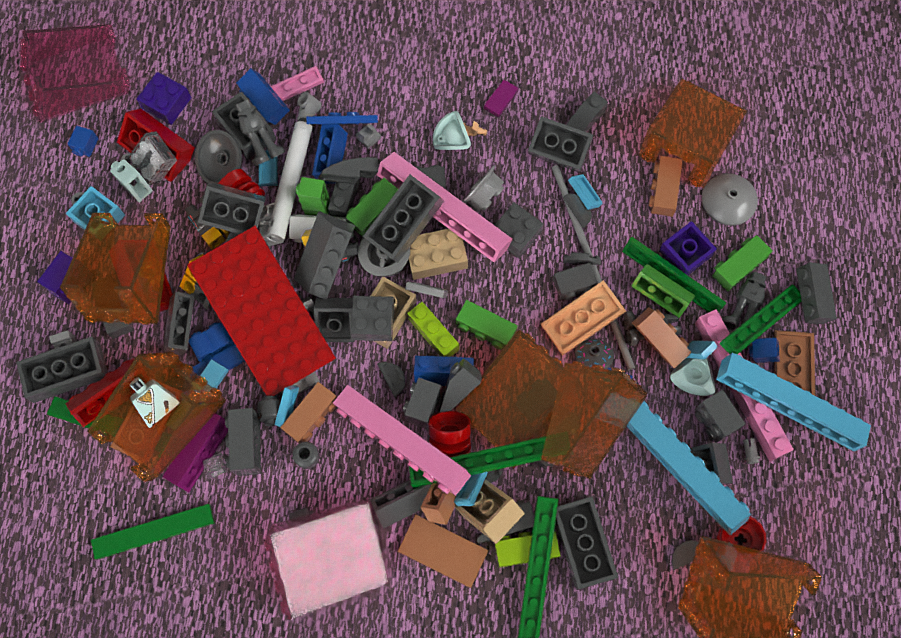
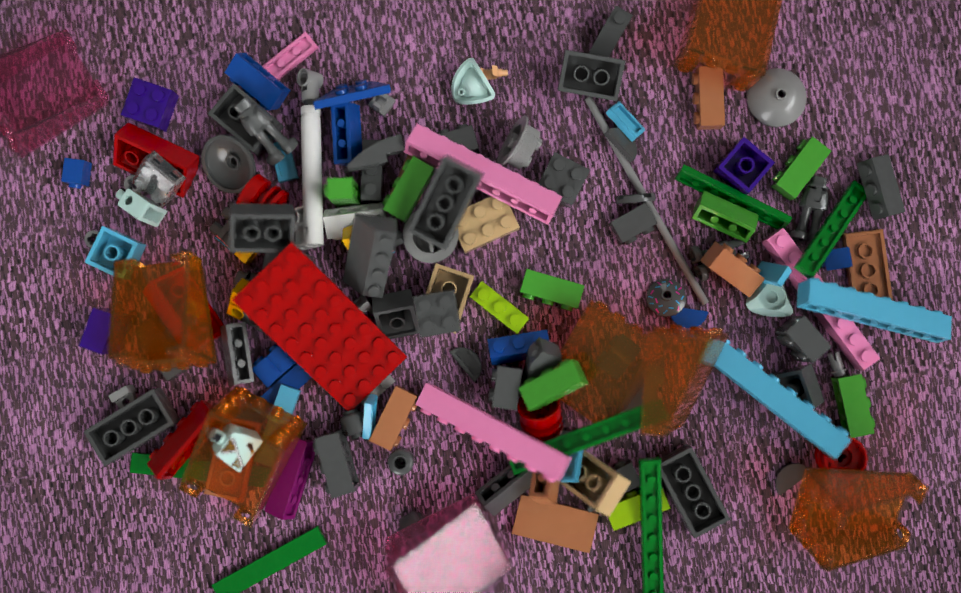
camera: 10 degrees left, 15 degrees up
(215, 465) = (314, 491): clear bracket -> none
(426, 289) = (483, 266): light grey tile -> none
(467, 404) = (553, 384): none -> bright green brick
(501, 98) = (515, 29): magenta tile -> none
(583, 317) = (648, 261): light nougat tile -> none
(762, 492) = (853, 404): none -> bright green brick

